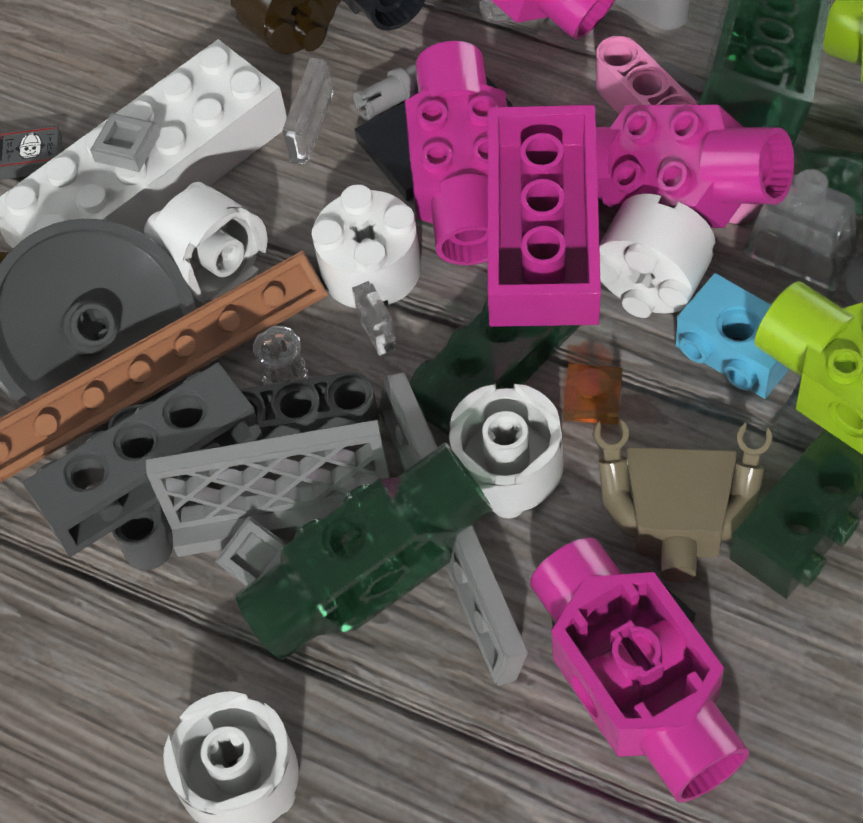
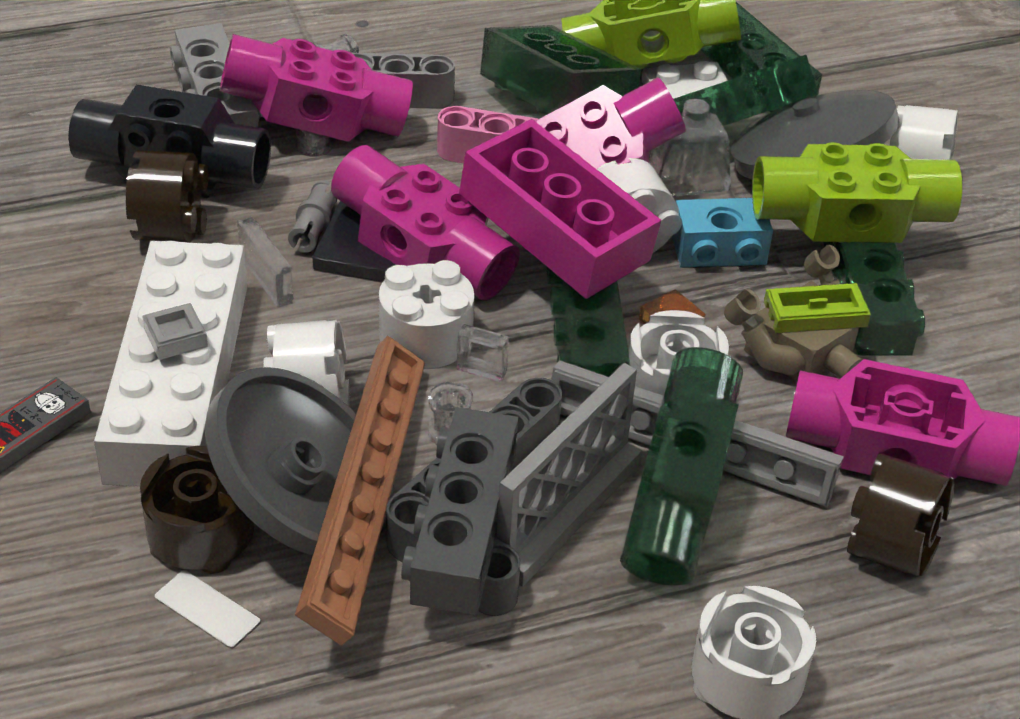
camera: 55 degrees left, 15 degrees down
(250, 552) = (589, 538): light grey tile -> none
(506, 749) = (900, 515): none -> dark brown brick
(715, 521) = (817, 308): none -> lime tile

